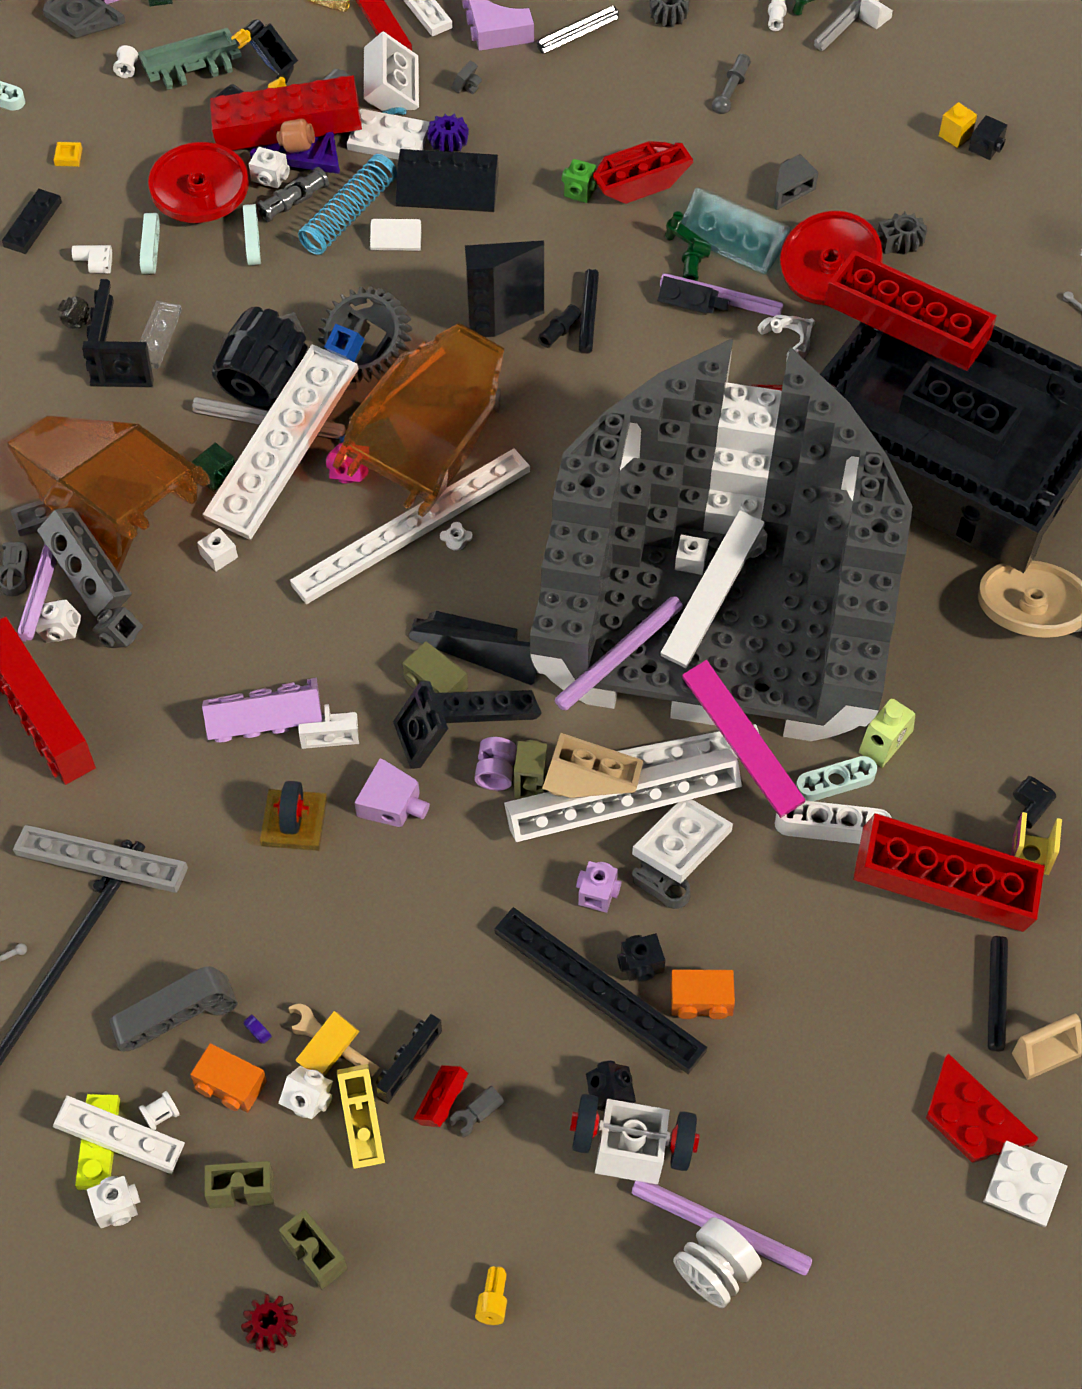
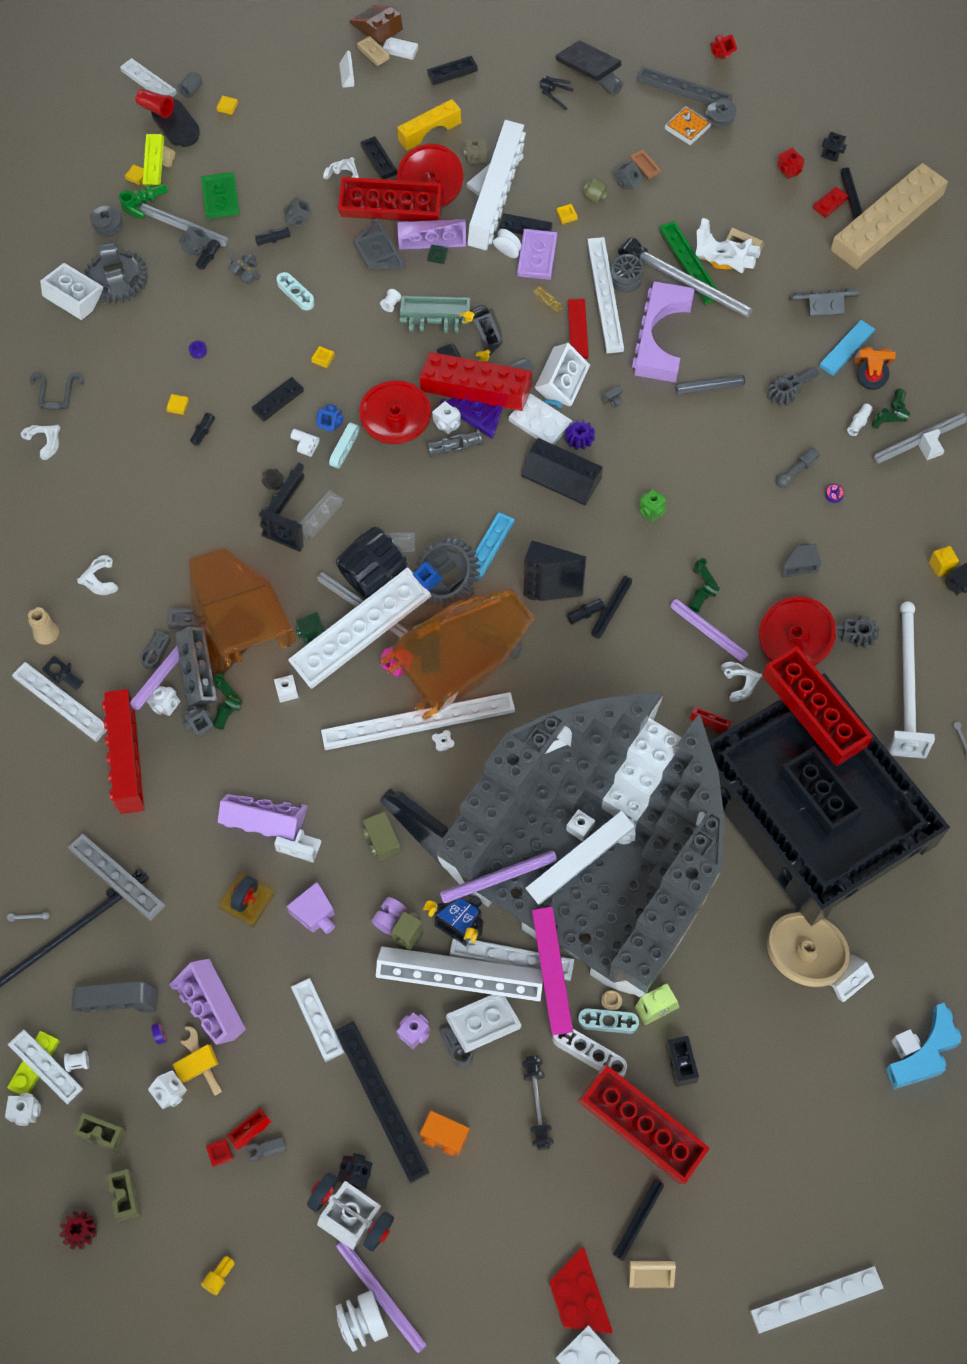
camera: 25 degrees right, 5 degrees up
(105, 219) = (325, 421): none -> blue brick
(152, 593) = (231, 702): none -> dark green pin
(228, 1078) = (126, 1058): orange brick -> none
(251, 234) = (413, 464): light aqua beam -> none
(296, 135) = (473, 402): nougat head -> none
(305, 960) = (209, 1001): none -> lavender wedge
(317, 235) = (452, 485): medium azure piece -> none
(360, 1116) = (194, 1118): light yellow slope -> none
(396, 234) = (509, 499): white slope -> none
(400, 279) = (492, 541): none -> medium azure tile
(408, 1058) = (240, 1094): black plate -> none
(414, 1144) = (219, 1152): none -> red tile
(425, 715) = (357, 865): black bracket -> none
(462, 928) = (317, 1020): none -> white tile
(589, 723) = (458, 918): none -> torso
(590, 770) = (444, 949): tan slope -> none
(641, 957) = (415, 1100): black brick -> none
(642, 170) = (696, 514): red wedge -> none
(691, 296) = (686, 623): black hinge -> none
(735, 230) = (742, 584): clear light blue slope -> none
(789, 98) = (834, 493): none -> tile
(822, 938) = (541, 1131): none -> black axle
(827, 753) = (611, 1000): none -> tan plate
(954, 784) = (682, 1061): none -> black brick
(1033, 325) = (908, 742): none -> white piece
(1034, 799) = (736, 1093): black piece -> none
(1047, 847) = (711, 1119): light yellow piece -> none

